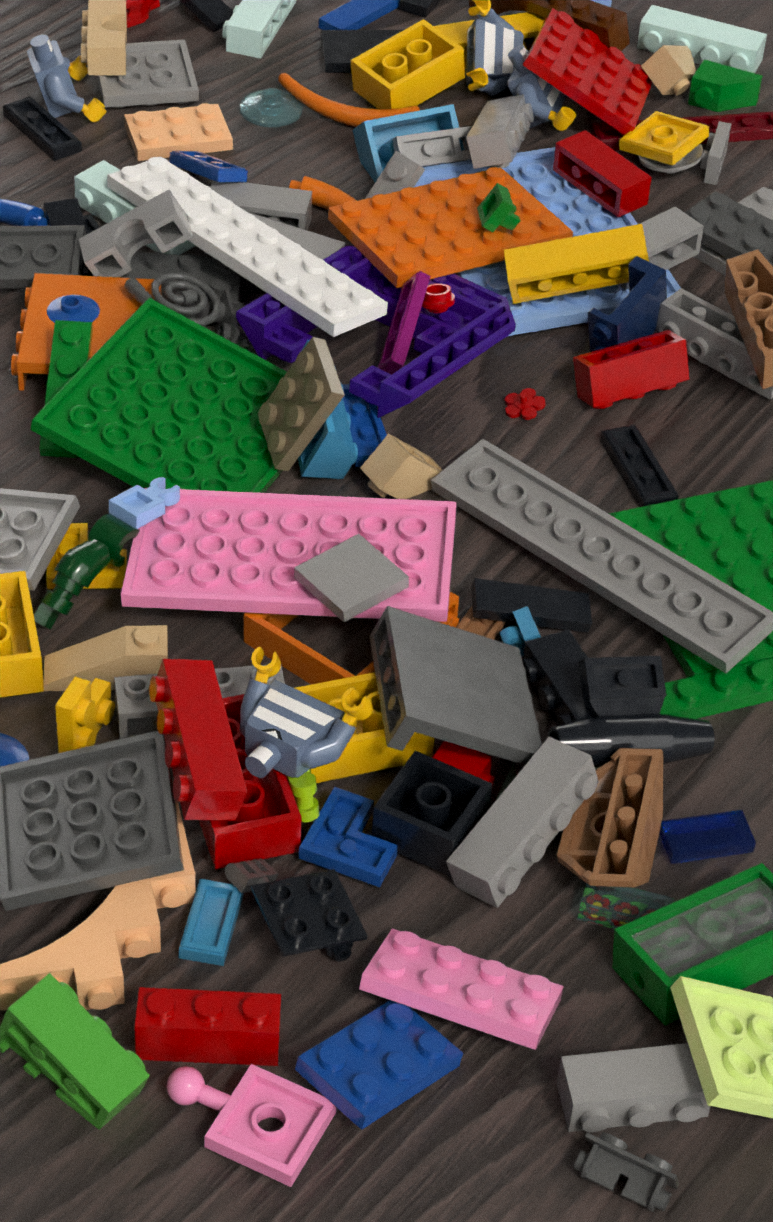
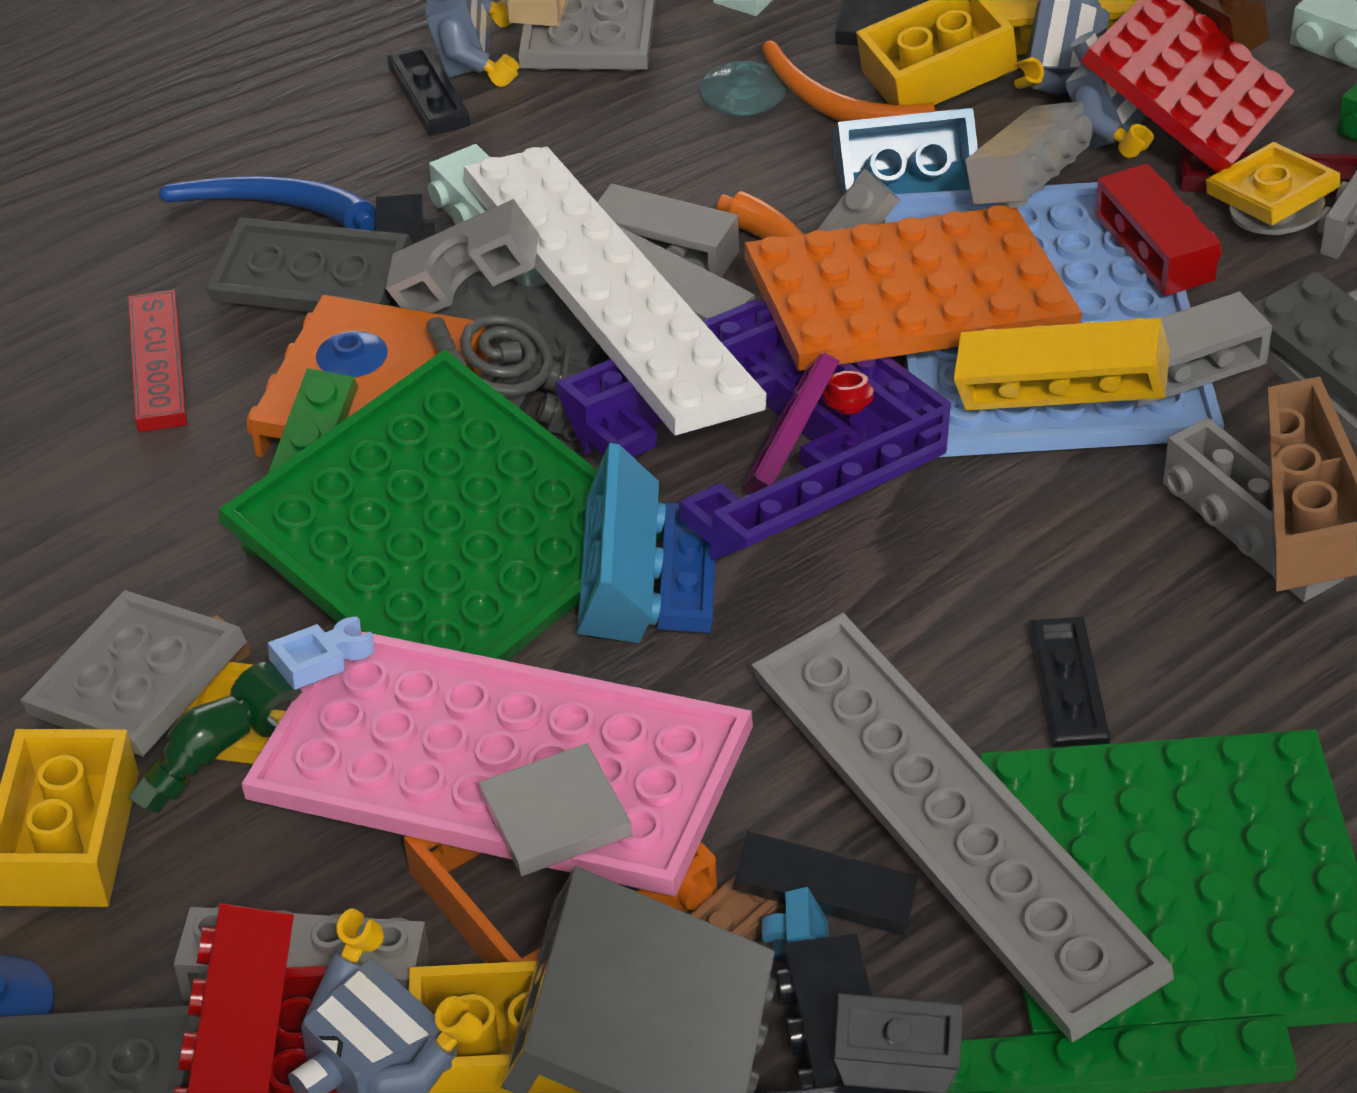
camera: 20 degrees right, 0 degrees up
(82, 713) = (122, 963): yellow plate -> none
(110, 655) = (209, 872): tan slope -> none
(178, 129) = (603, 111): light nougat plate -> none
(208, 166) = (614, 165): blue tile -> none
(300, 404) = (579, 533): dark tan plate -> none
(399, 469) = (713, 642): tan slope -> none
(434, 146) = (924, 167): light grey plate -> none
(498, 210) = (973, 272): green tile -> none
(524, 404) = (935, 563): red plant -> none
(631, 369) = (1100, 531): red brick -> none
(636, 313) = (1120, 457): dark blue panel -> none
(671, 69) = (1317, 80): tan slope -> none

